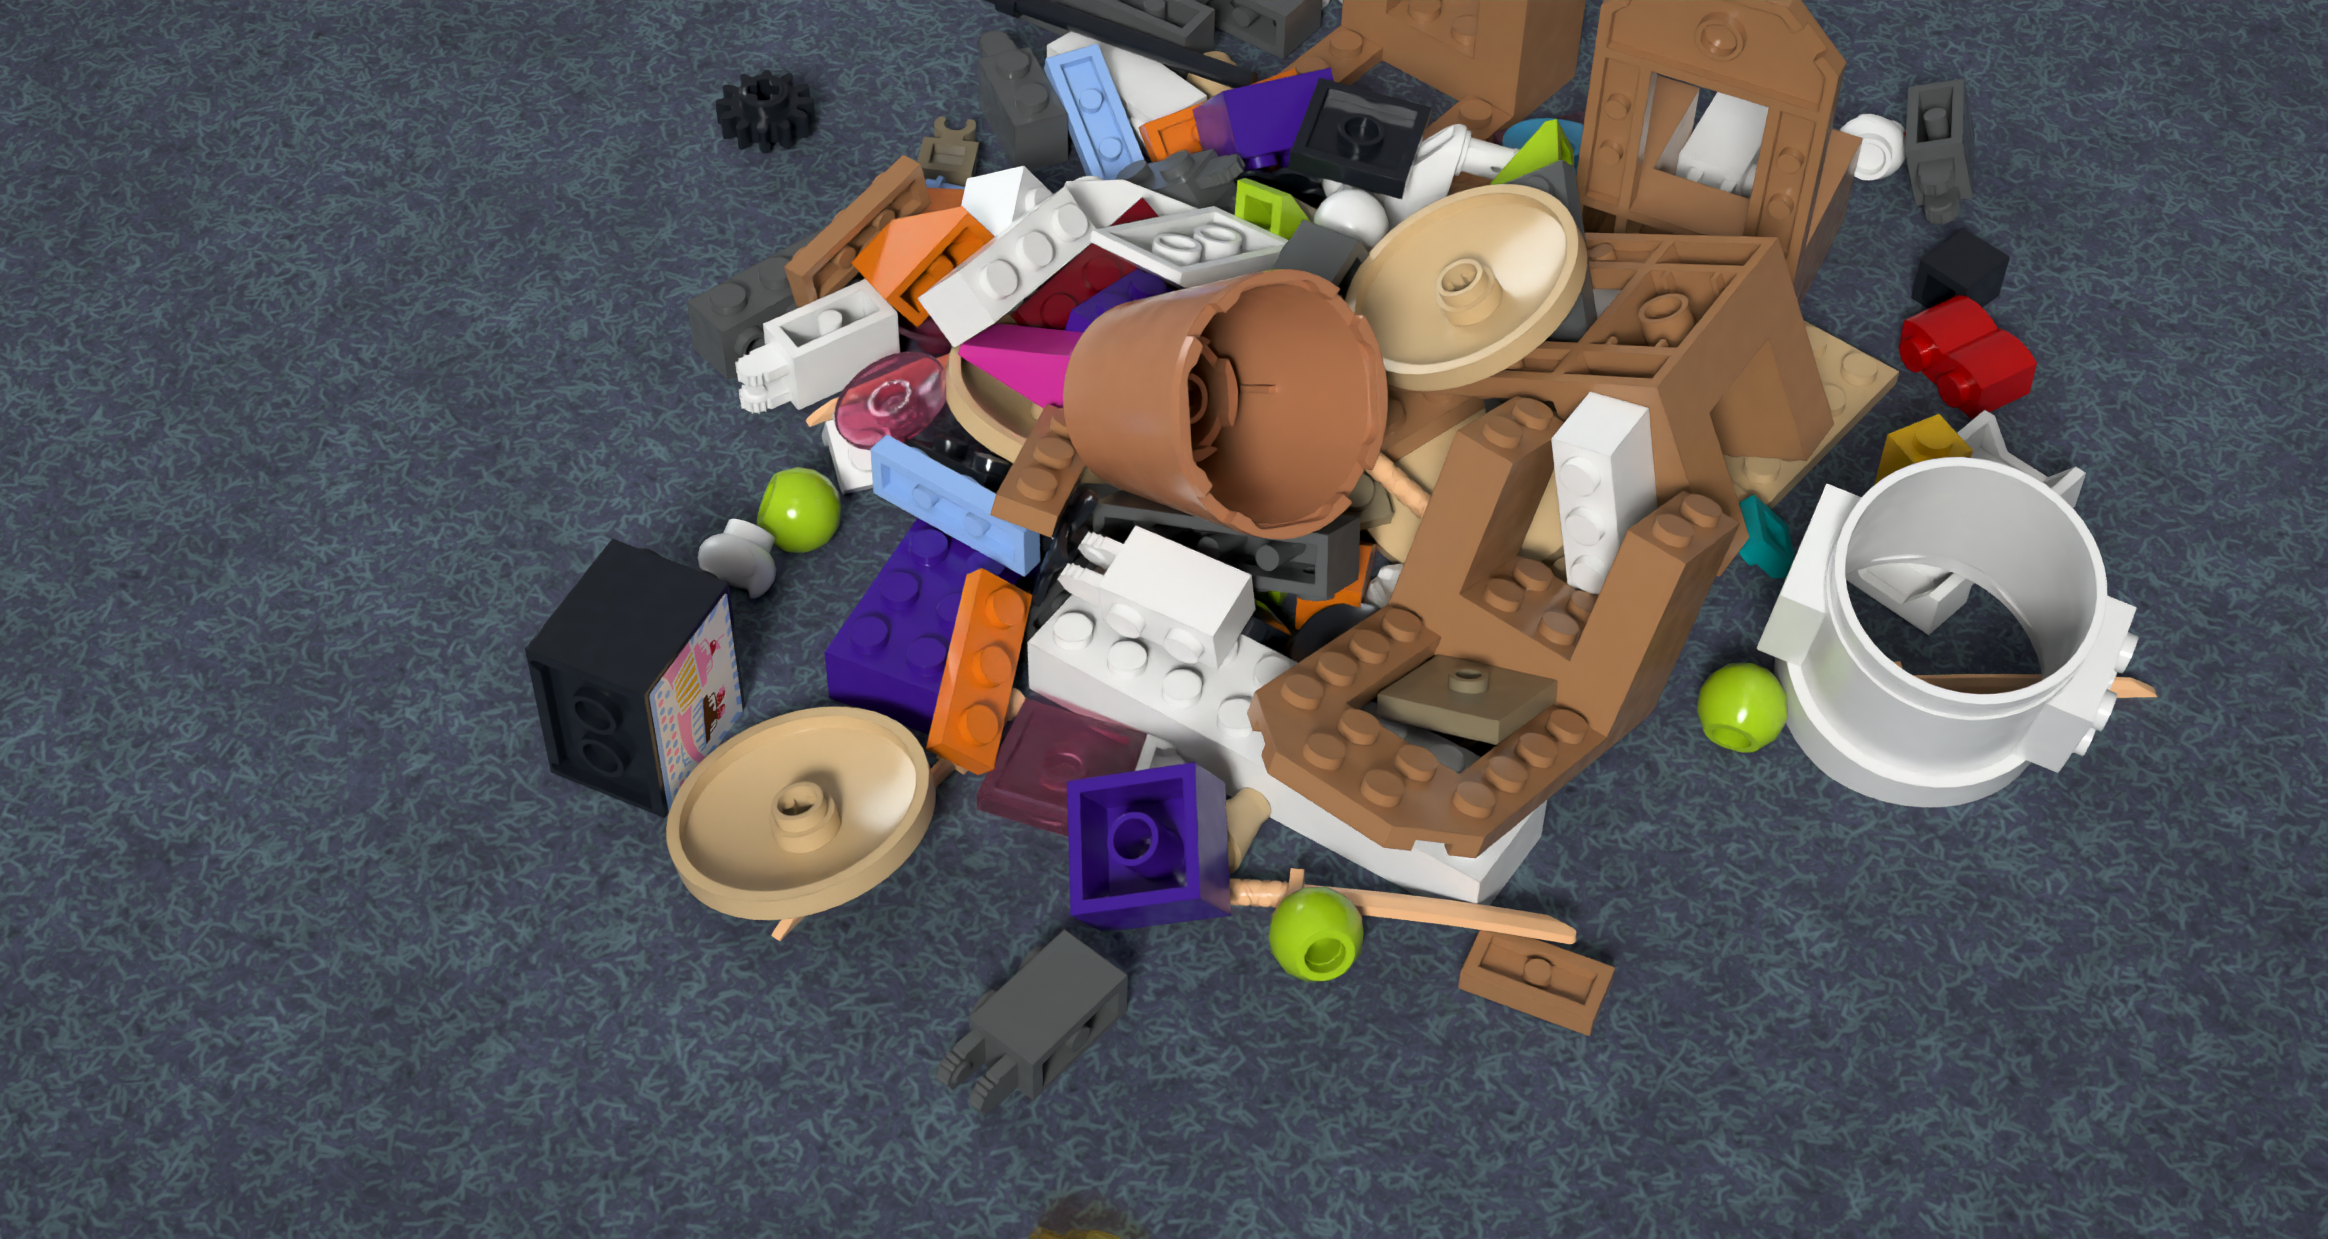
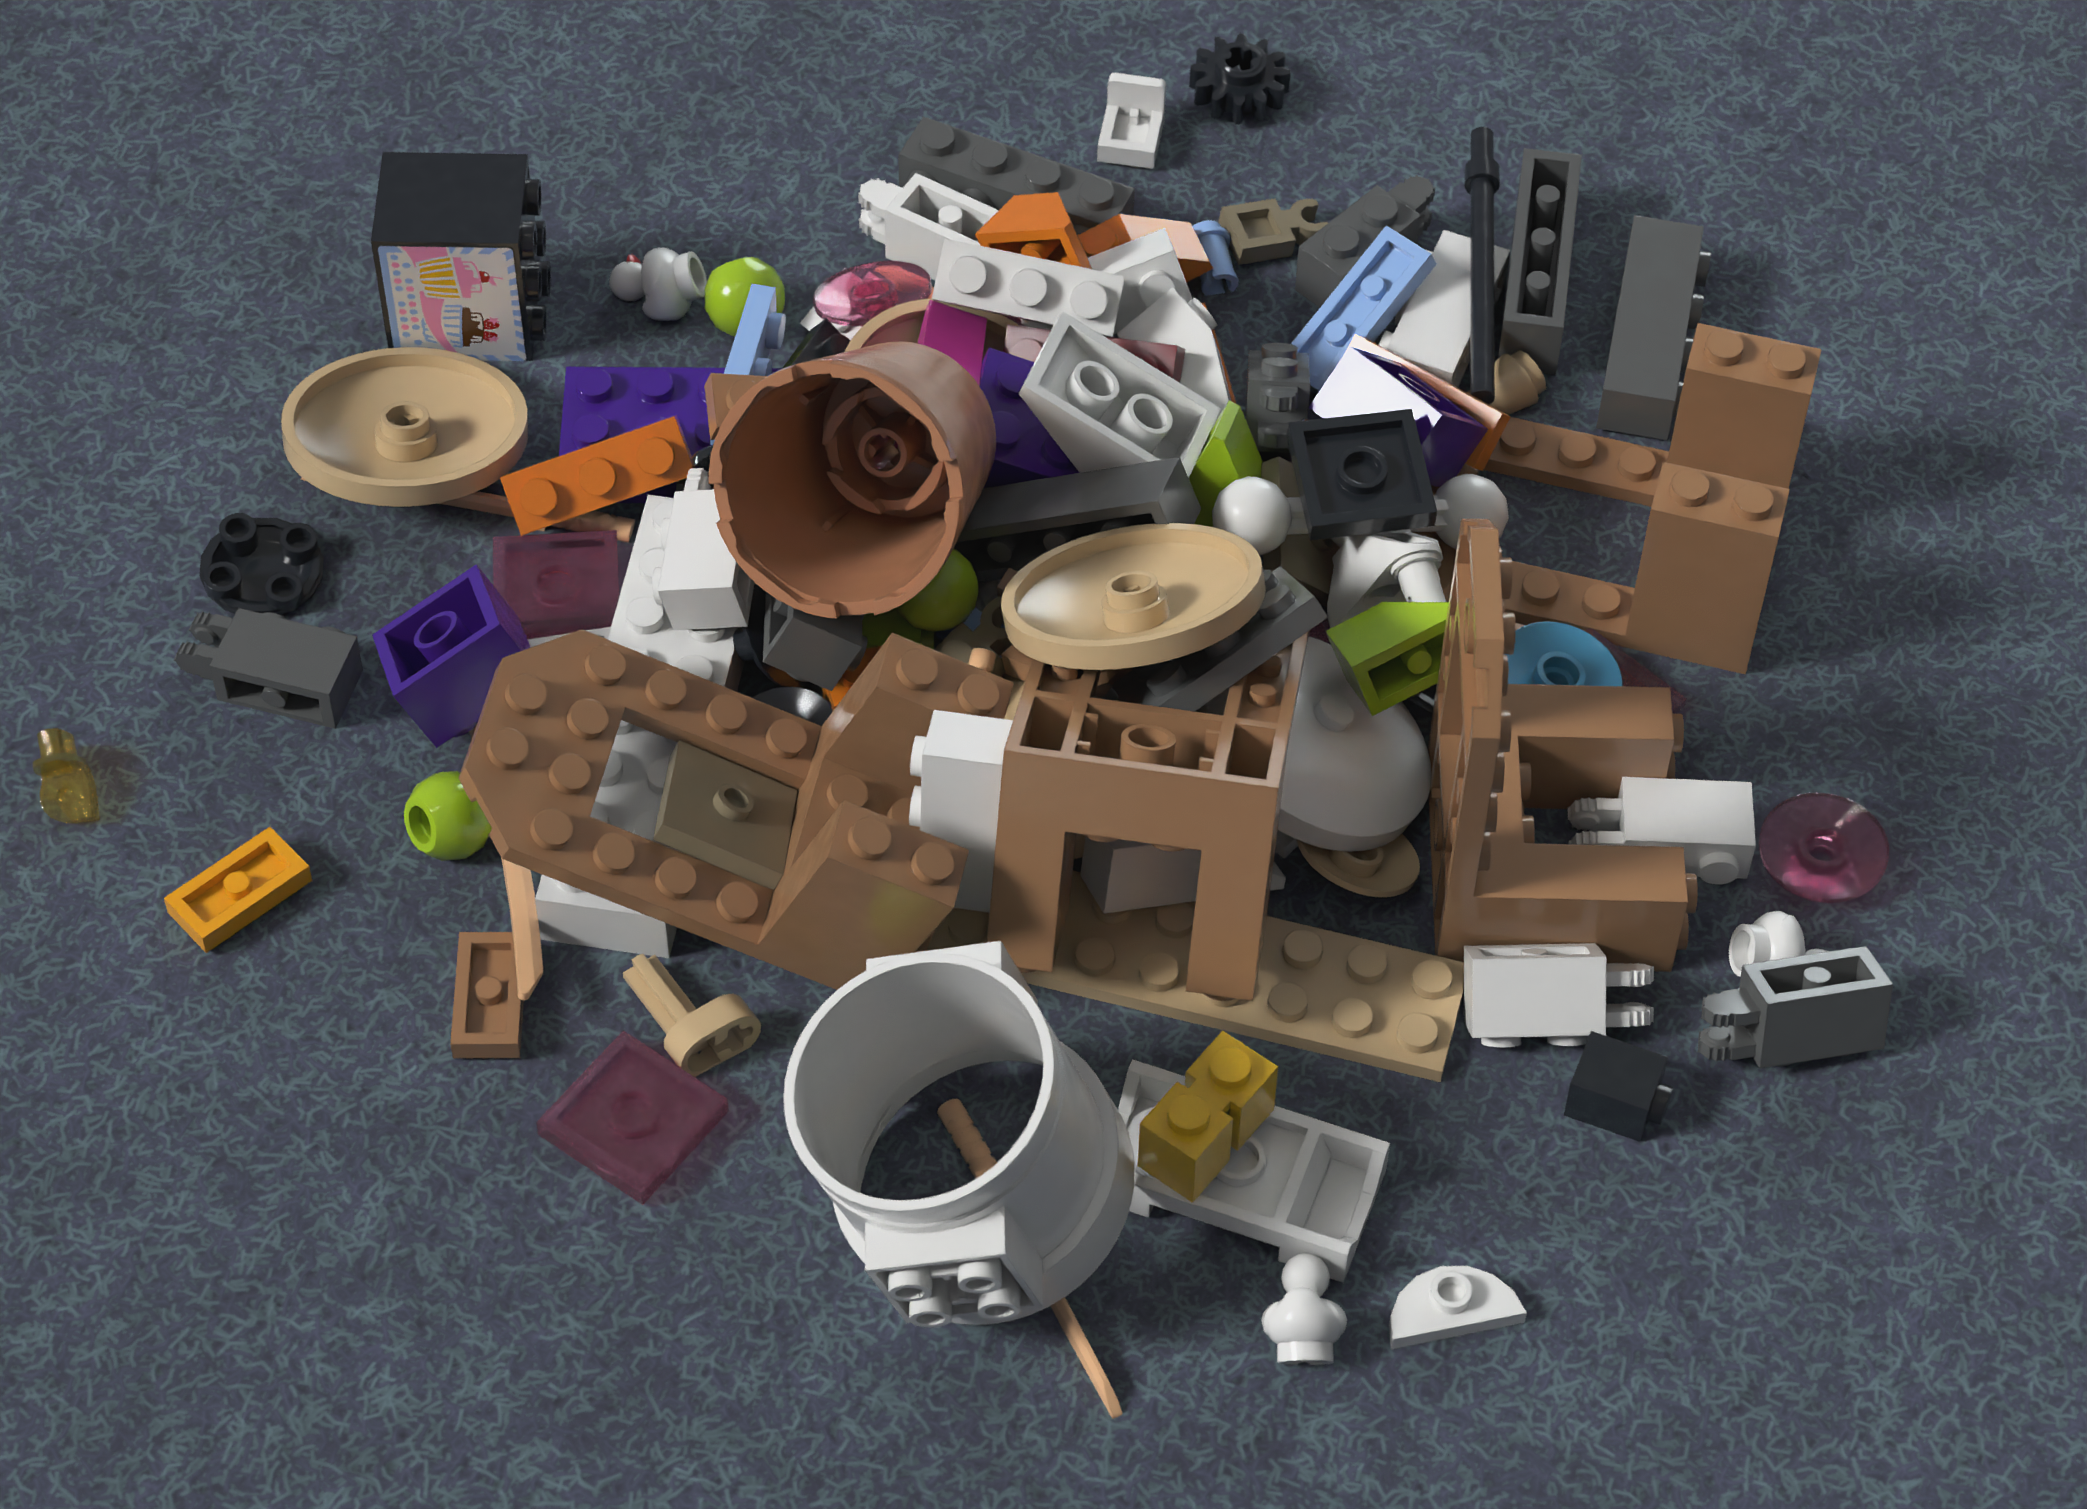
camera: 65 degrees right, 5 degrees up
(766, 192) = (1132, 120): none -> white bracket
(826, 261) = (1085, 184): medium nougat plate -> none
(889, 1002) = (261, 564): none -> black dish
(1308, 1146) = (238, 889): none -> light orange plate
(1657, 836) = (717, 1028): none -> tan piece
(1726, 914) = (632, 1117): none -> clear pink plate
(1768, 539) = (1123, 1016): teal plate -> none
(1859, 279) = (1547, 993): none -> white hinge
(1967, 356) = (1493, 1122): red brick -> none
(2121, 451) = (1452, 1304): none -> white plate
(2125, 533) = (1302, 1321): none -> white animal

